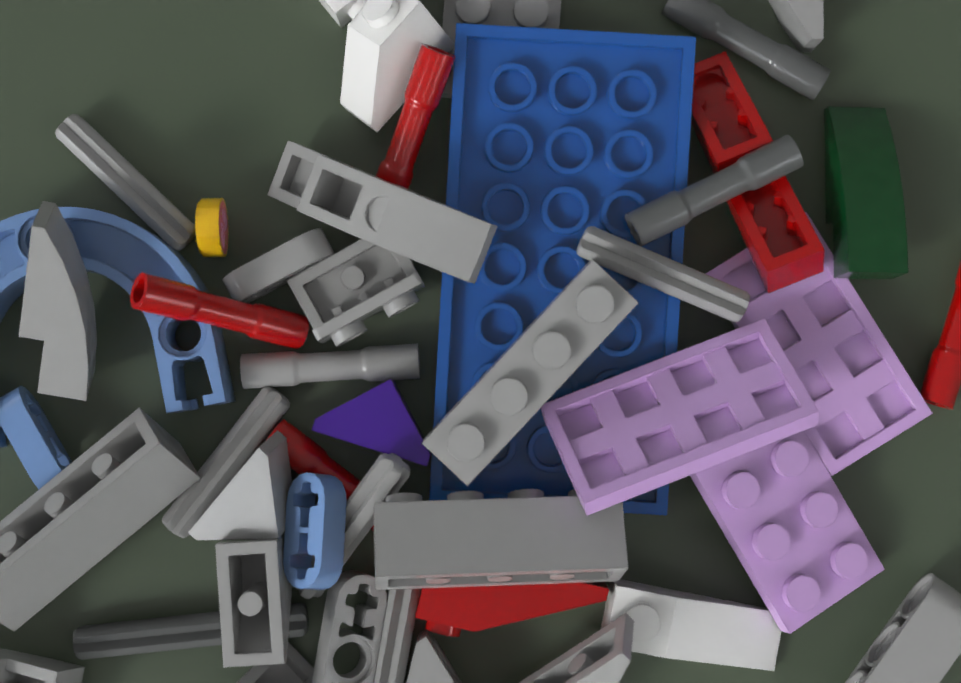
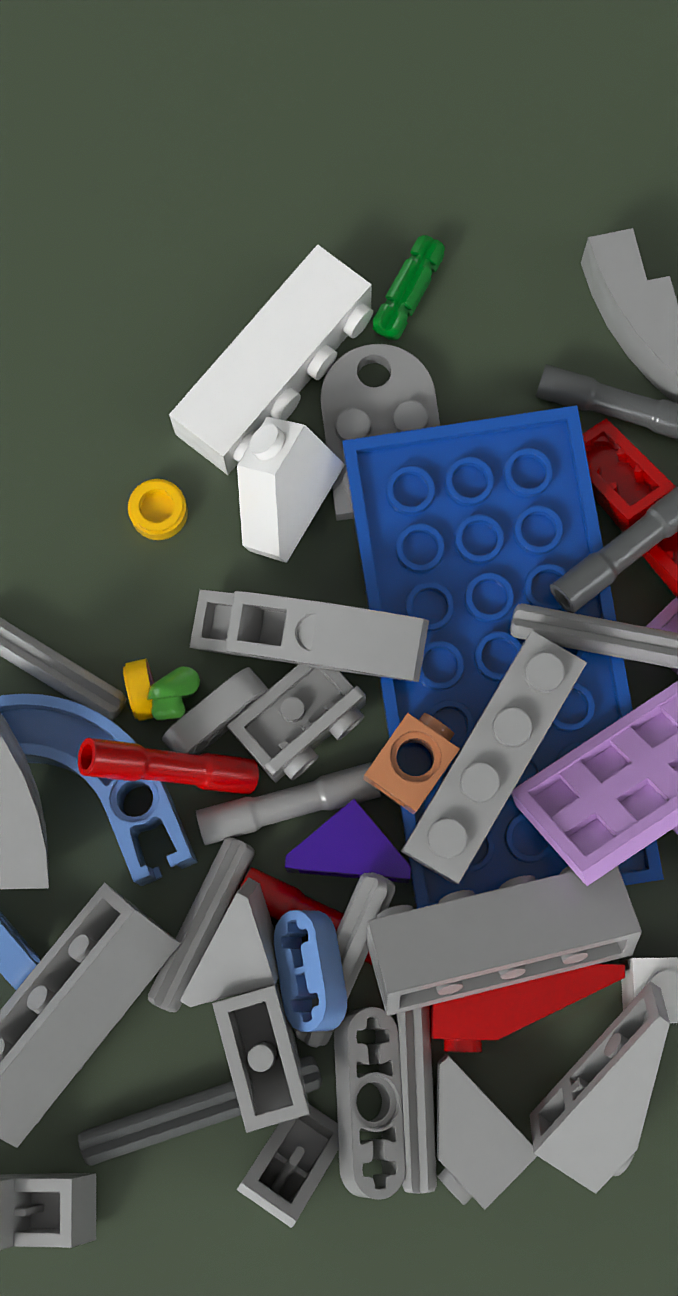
camera: 10 degrees left, 10 degrees down
(236, 236) = (169, 692): none -> bright green arm
(264, 48) = (157, 509): none -> yellow tile
(421, 99) = (324, 520): red piece -> none
(437, 381) = (392, 781): none -> nougat brick

